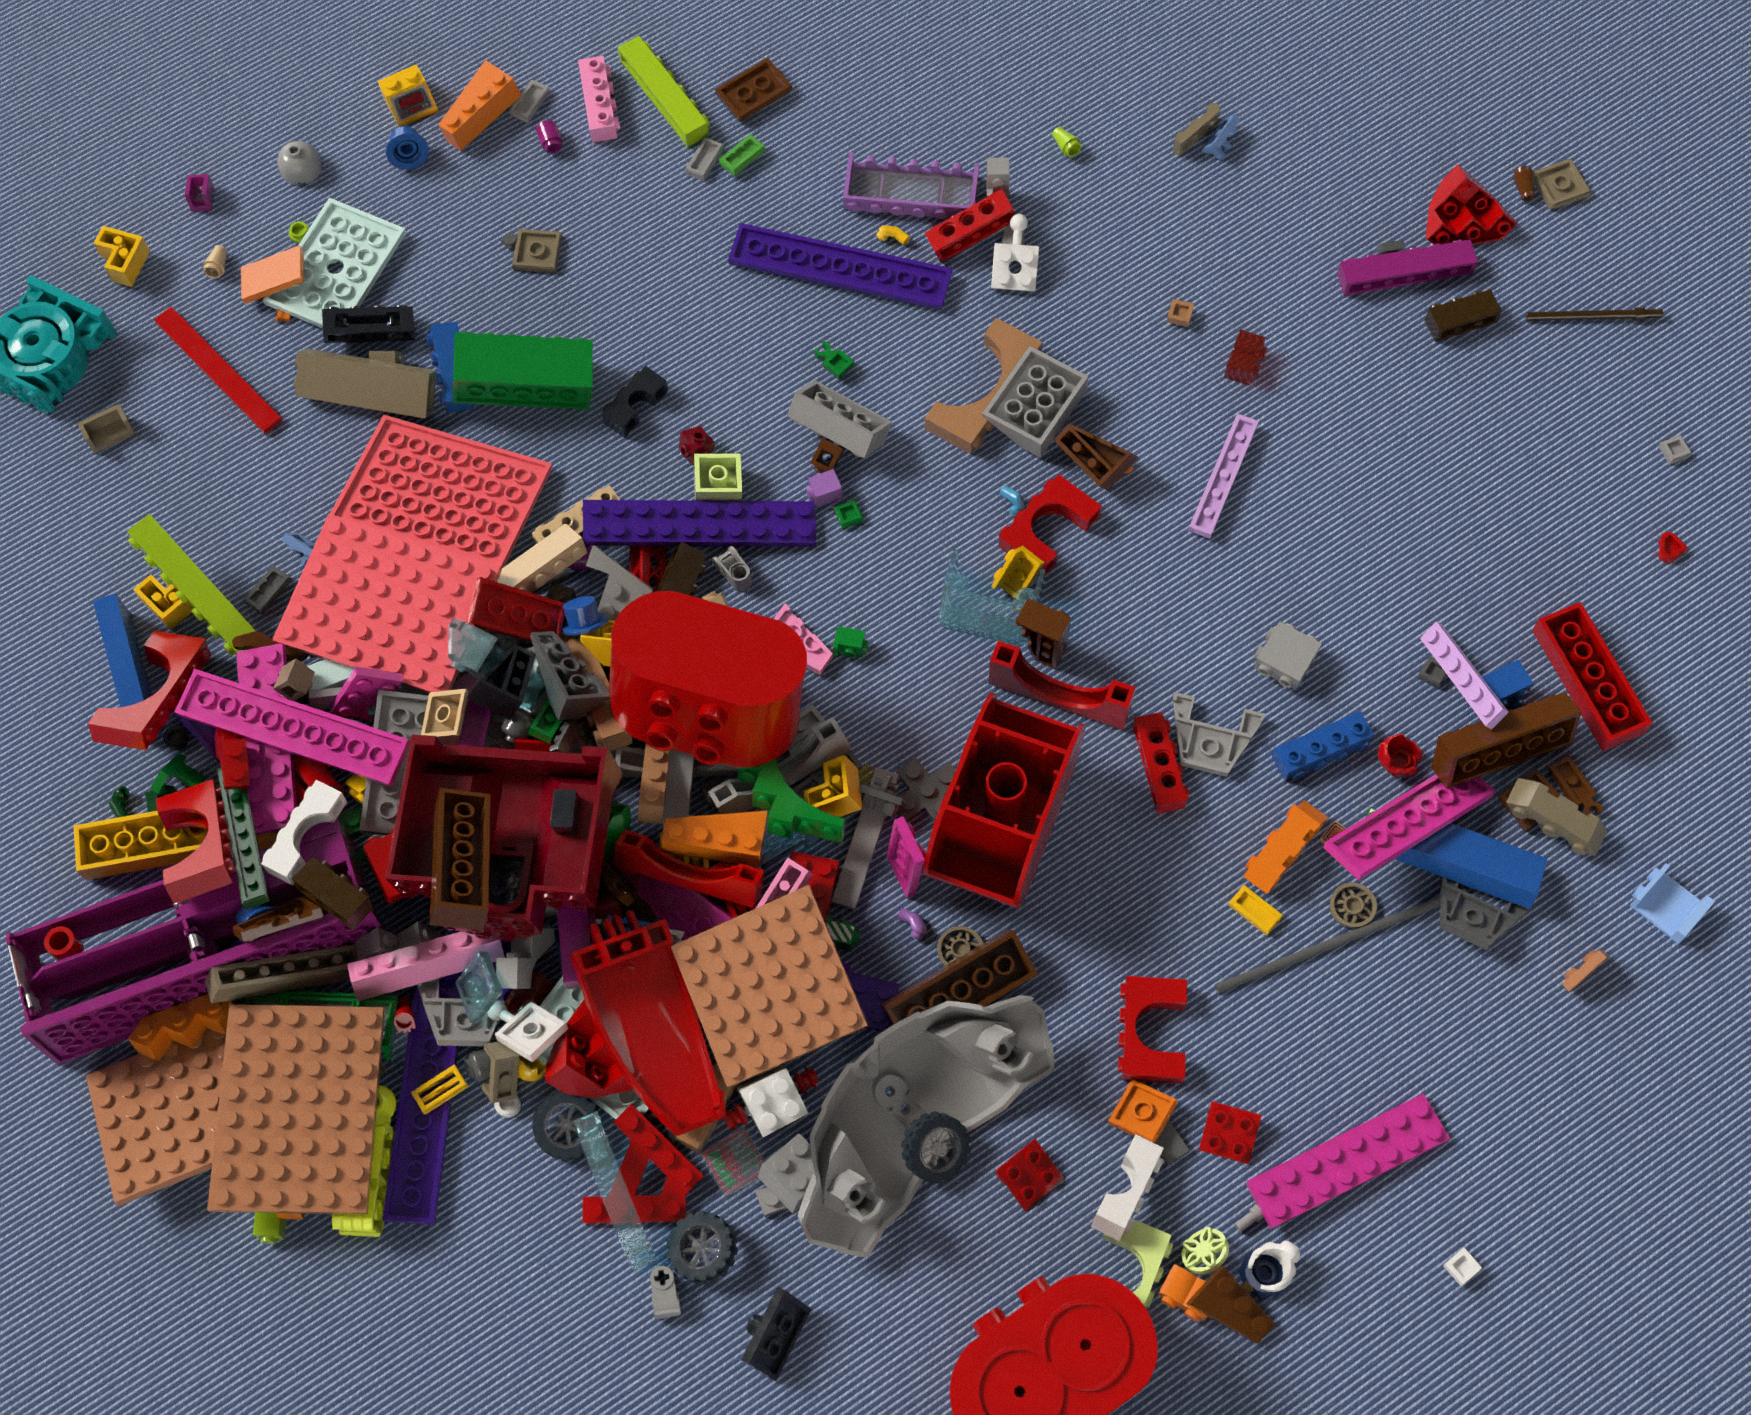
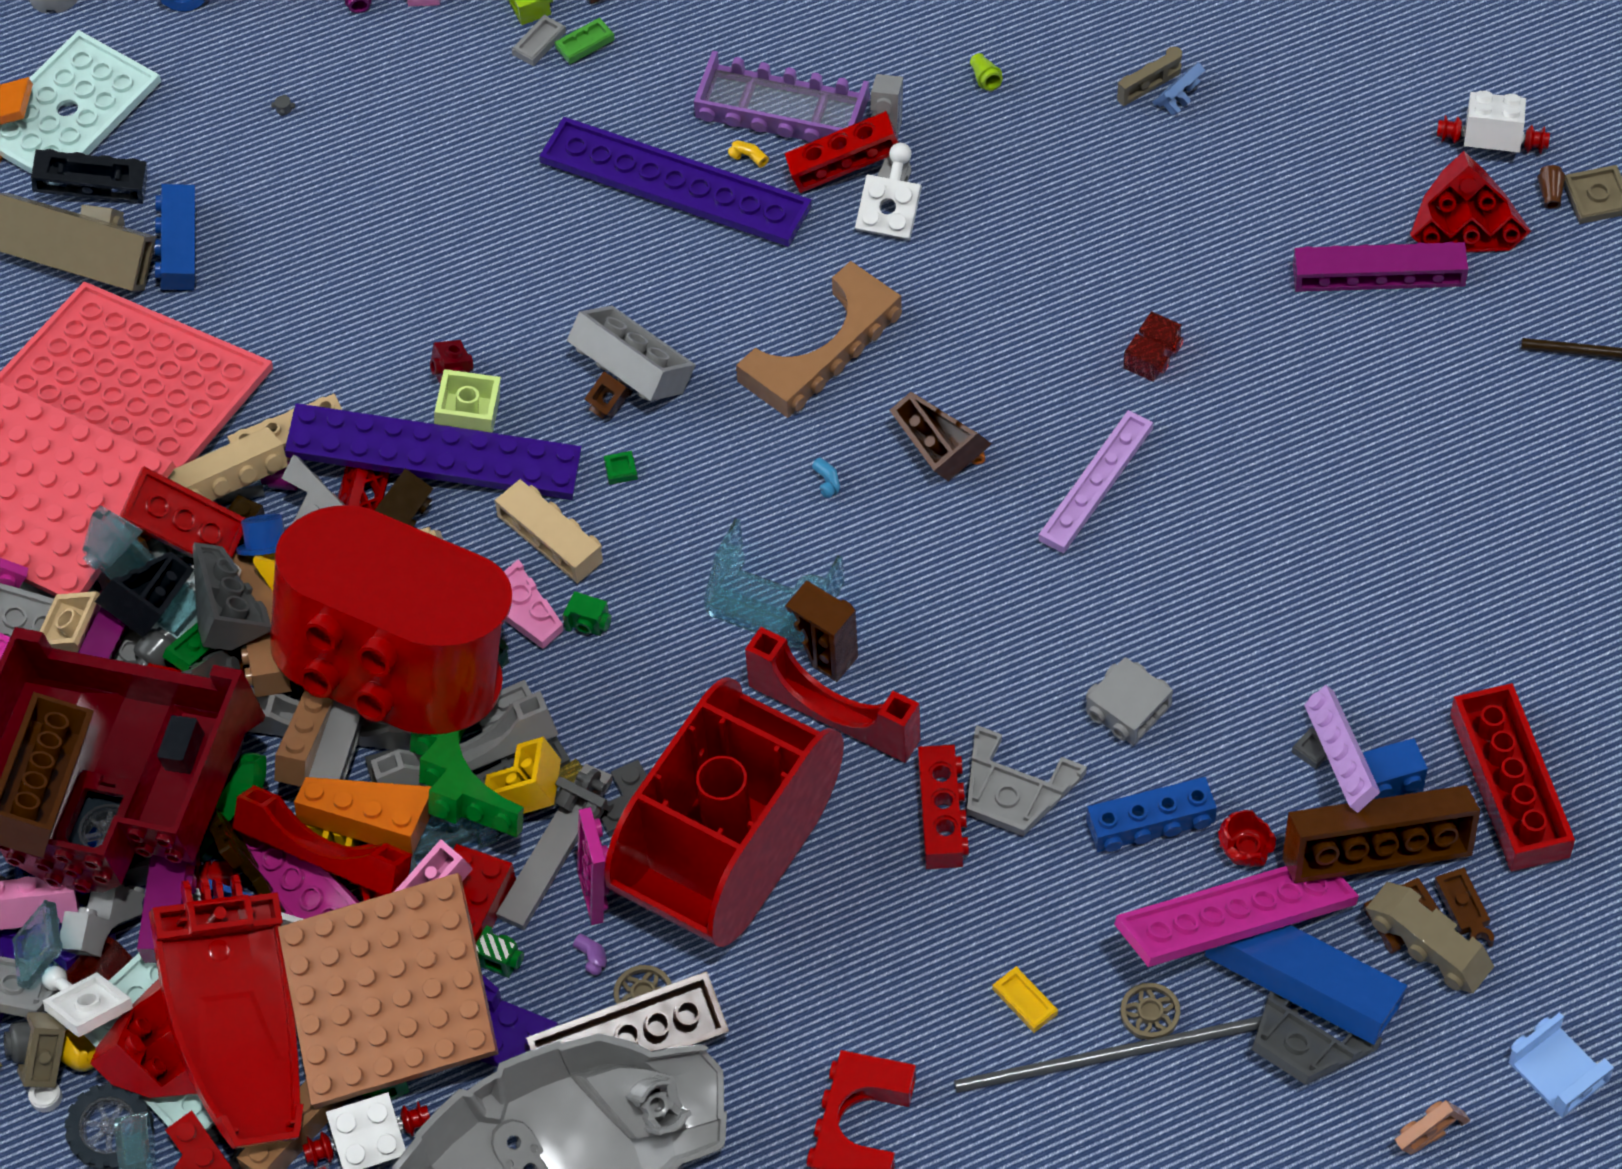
camera: 10 degrees right, 10 degrees down
(298, 231) = (32, 62): lime plate -> none
(522, 371) = (257, 249): green brick -> none
(537, 251) = (312, 120): dark tan tile -> none
(646, 387) = (403, 289): black arch -> none
(732, 565) = (465, 512): light grey piece -> none
(805, 576) = (549, 530): none -> tan brick
(824, 488) = (596, 432): medium lavender brick -> none
(835, 362) = (644, 290): green plate -> none
(1018, 571) = (810, 554): yellow bracket -> none
(1036, 400) = (879, 363): light grey slope -> none
(1059, 498) = (879, 480): red arch -> none
(1180, 312) = (1083, 285): medium nougat plate -> none
(1284, 846) = (1075, 925): orange brick -> none
(1390, 246) = (1368, 238): dark grey tile -> none
(1462, 315) = (1439, 331): dark brown brick -> none
(1472, 137) = (1494, 124): none -> white brick

